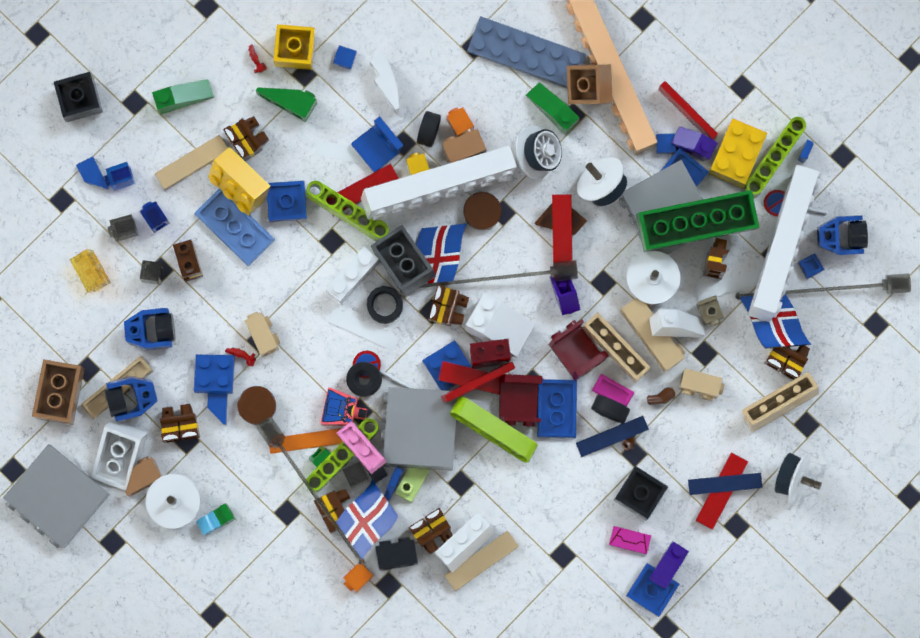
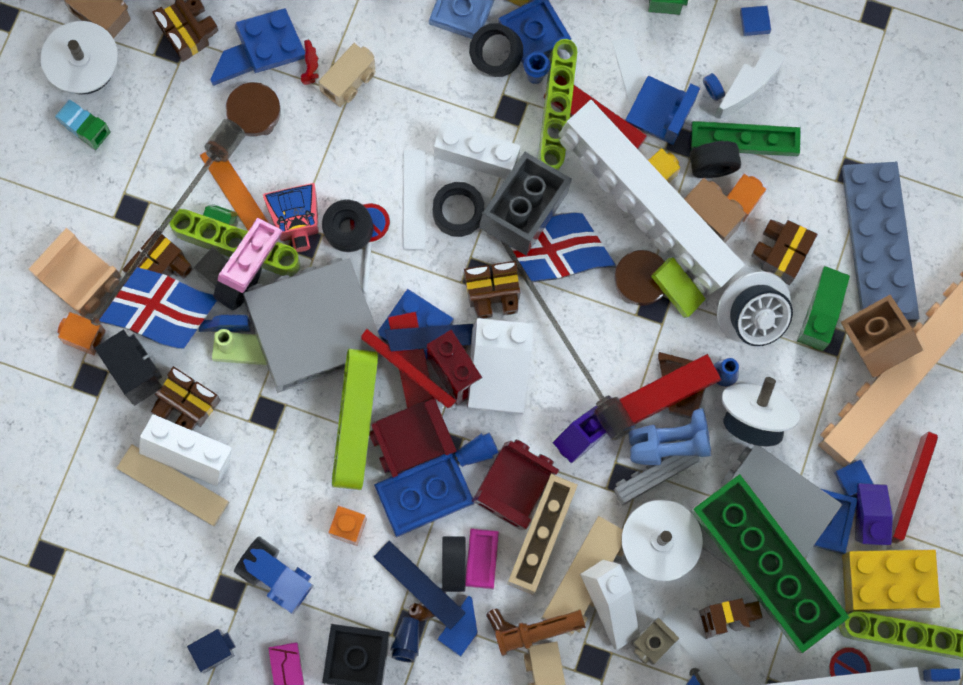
camera: 60 degrees right, 5 degrees down
(295, 245) = (478, 42): none -> black tyre
(313, 207) = (536, 67): none -> blue cone
(316, 564) = (75, 273): none -> light nougat panel
(378, 106) = (713, 87): none -> blue tile
(421, 102) = (749, 137): none -> green plate
(463, 360) = (419, 337): none -> dark blue sticker
(499, 191) = (678, 287): none -> lime tile
(506, 112) = (788, 251): none -> reddish brown hips
(545, 363) = (477, 450): none -> blue cone
(557, 463) = (347, 525): none -> orange brick
(558, 525) = (260, 564): none -> blue piece
(561, 190) = (727, 378): none -> blue cone
(586, 255) = (648, 441): none -> medium blue piece
(596, 578) = (212, 650): none -> dark blue brick
(609, 261) = (652, 477): none -> light grey piece
(643, 459) = (406, 643): none -> dark blue cone
(653, 422) = (463, 632): none -> blue tile
(673, 385) = (526, 635): none -> dark orange pin

